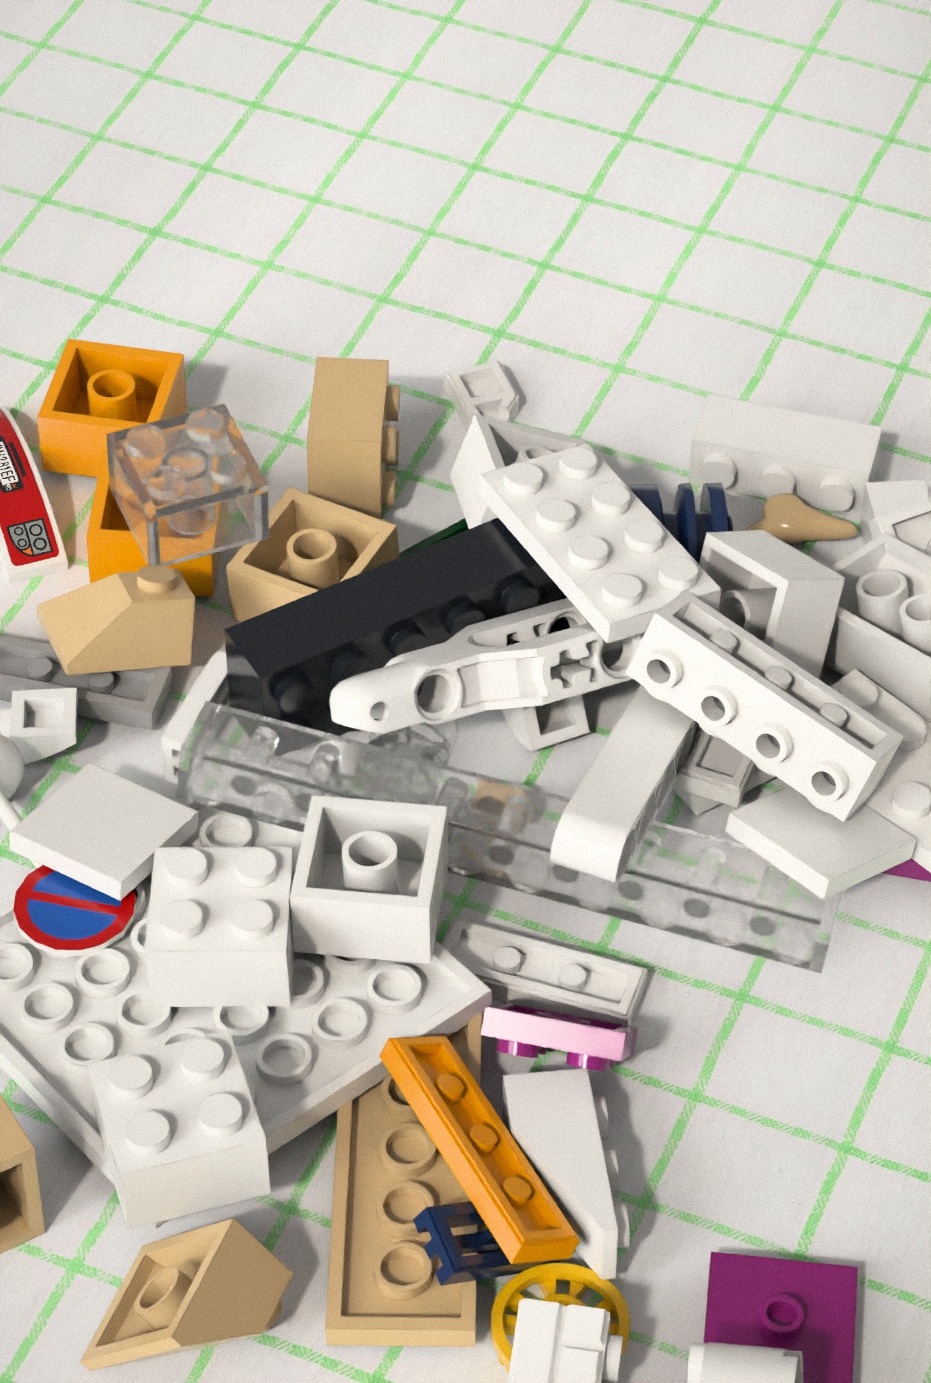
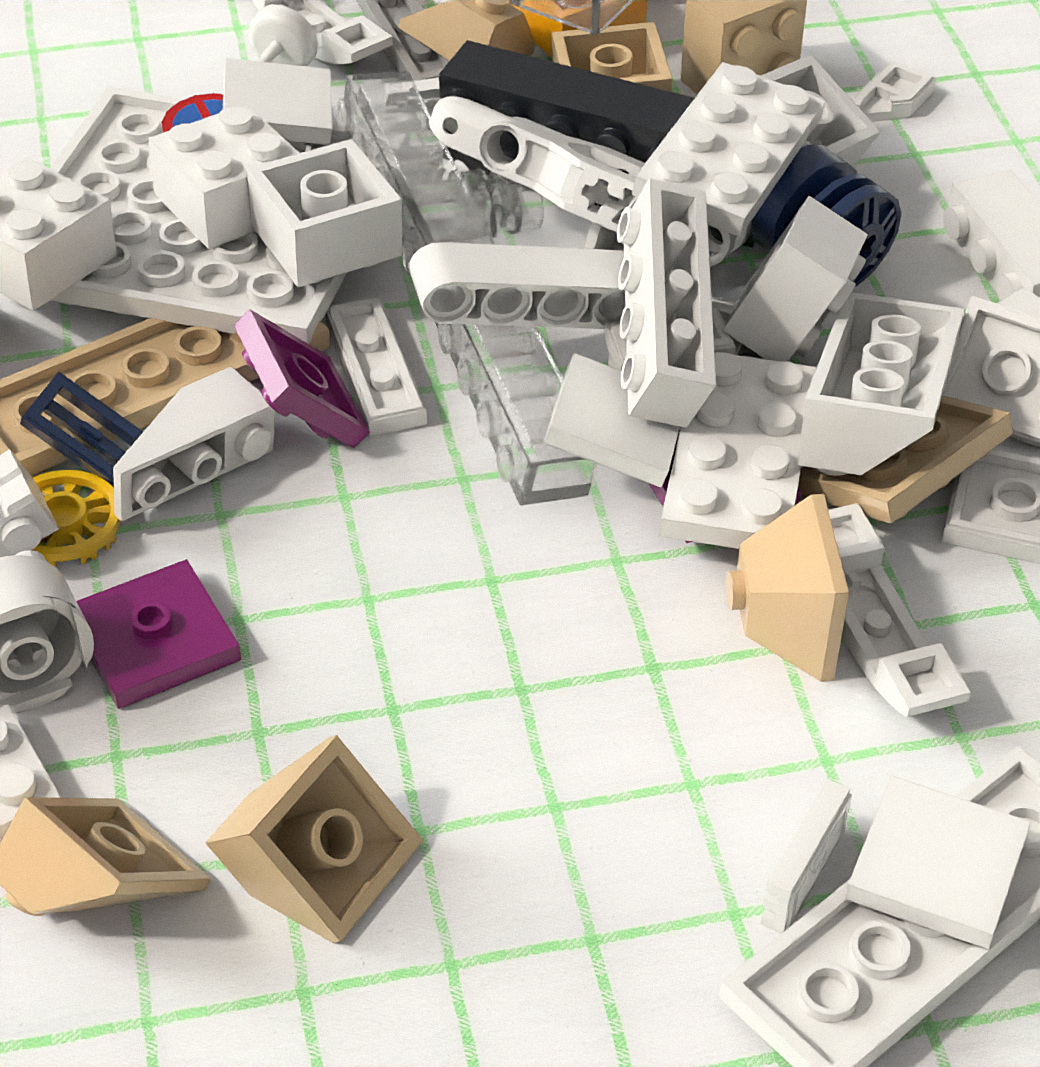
camera: 55 degrees right, 0 degrees up
(479, 1150) = (146, 384): light orange tile -> none
(796, 522) = (953, 282): tan animal -> none

